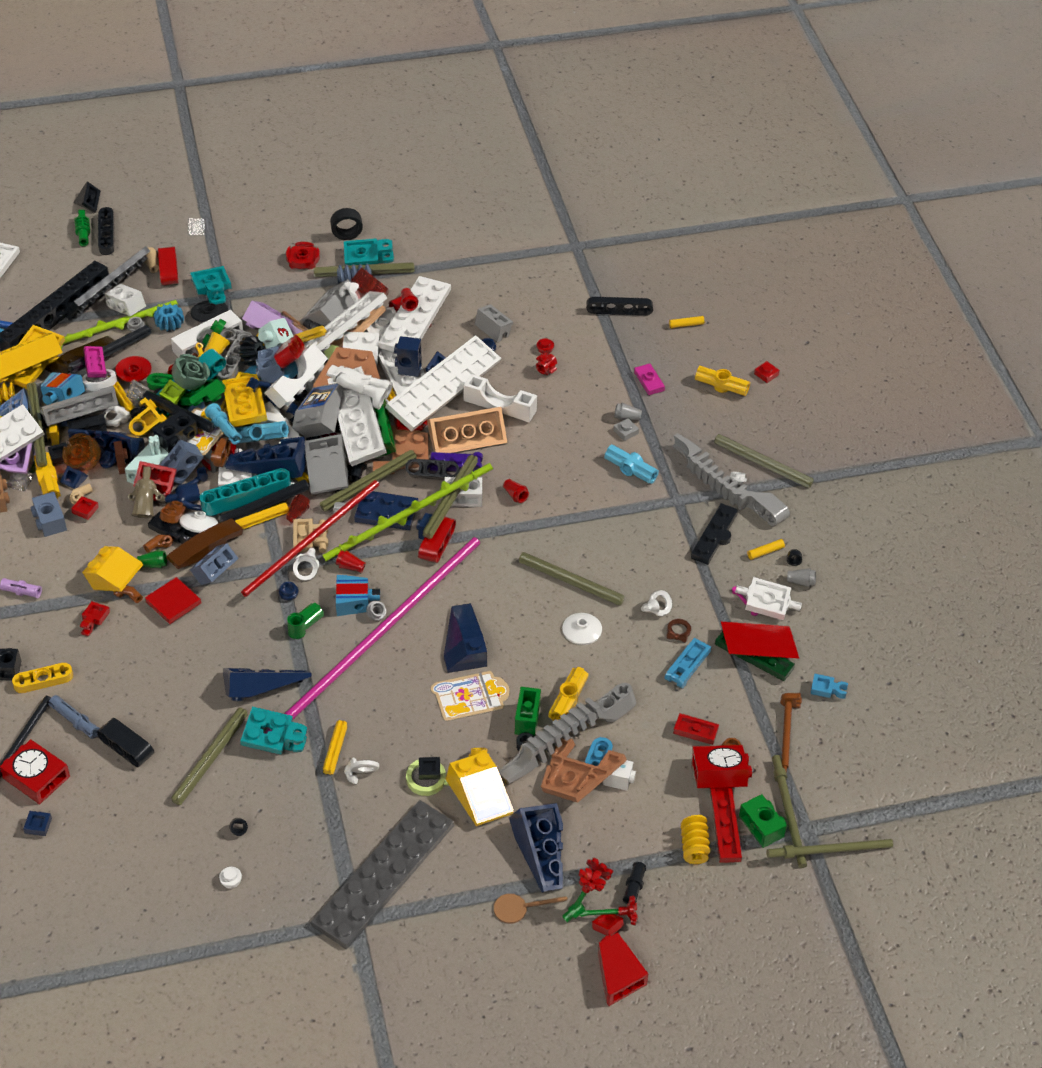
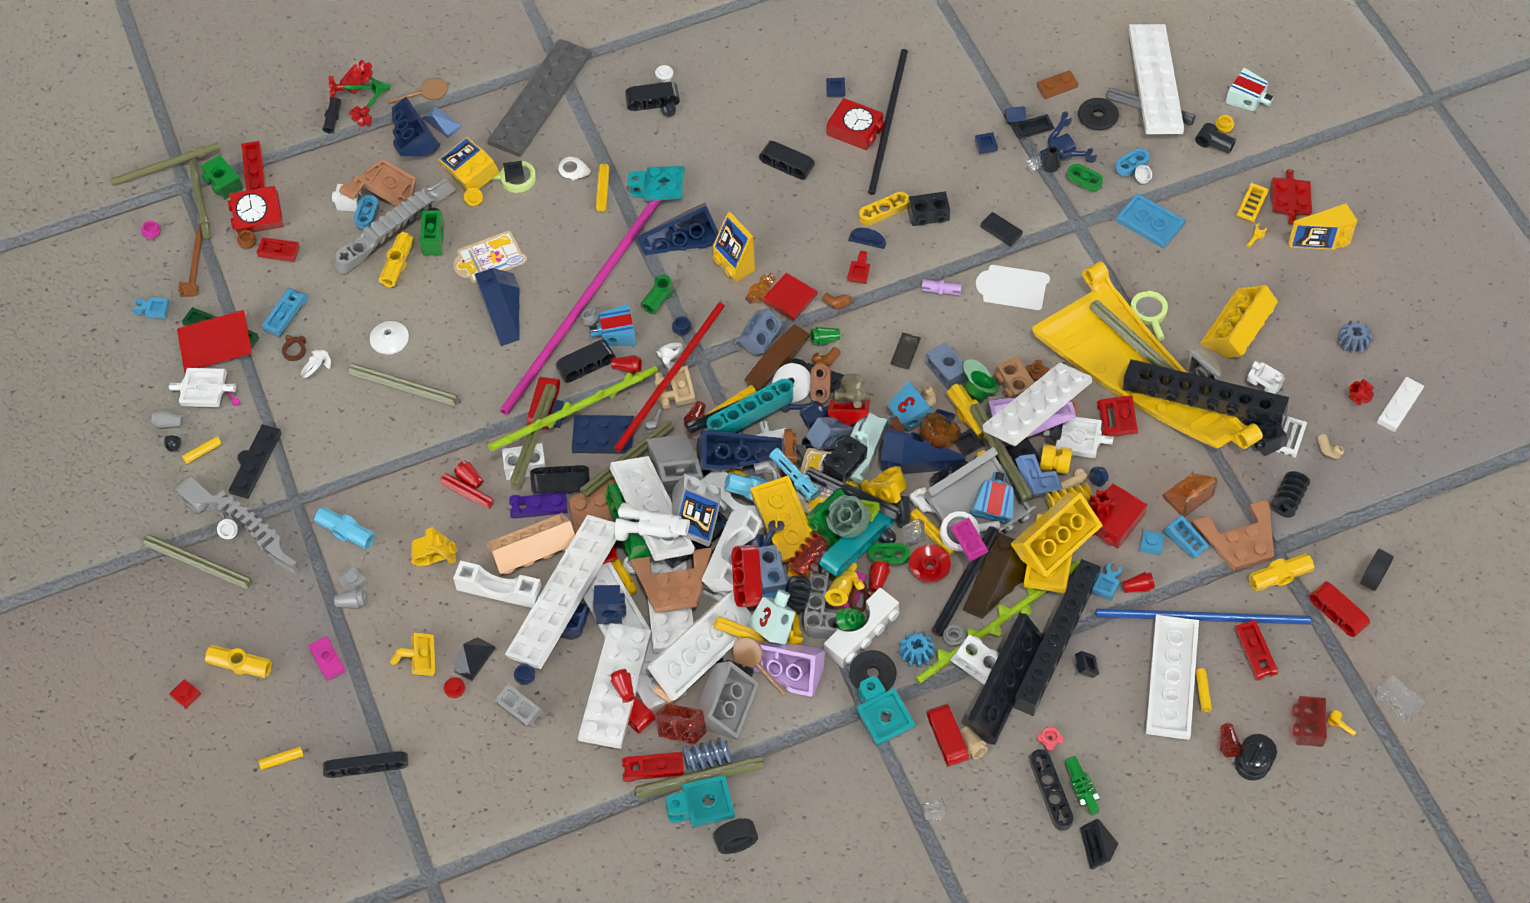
camera: 175 degrees right, 10 degrees up
(24, 491) = (979, 380): none -> green piece
(41, 291) = (1086, 664): none -> black plate
(73, 645) = (867, 237): none -> dark blue tile
(79, 720) = (840, 176): sand blue pin -> none
(81, 538) = (905, 350): none -> clear smoke tile
(85, 508) = (916, 378): red plate -> none
(91, 255) = (1050, 732): none -> coral plate
(99, 477) = (909, 407): none -> dark azure torso
(111, 569) = (856, 308): yellow slope -> none
(201, 609) = (759, 291): none -> clear orange plate
(209, 756) = (710, 164): olive axle -> none
(214, 637) = (734, 249): none -> slope
(233, 365) = (808, 555): none -> clear red piece
(252, 844) = (651, 96): none -> black beam
(295, 258) = (783, 798): red plate -> none
(352, 288) = (697, 695): white piece -> none
(390, 569) = (585, 360): none -> black beam
(398, 278) = (653, 766): none -> red plate
(506, 859) = (441, 122): none -> medium blue slope
(507, 473) = (467, 491): none -> axle
(525, 365) = (473, 657): none -> black slope
(546, 363) = (448, 650): red gear -> none
(553, 432) = (432, 549): none -> yellow pin
(569, 366) = (422, 654): none -> yellow plate
(619, 969) = (340, 49): red slope -> none
(695, 839) = (280, 153): yellow piece -> none
(839, 775) = (150, 229): none -> dark pink plate

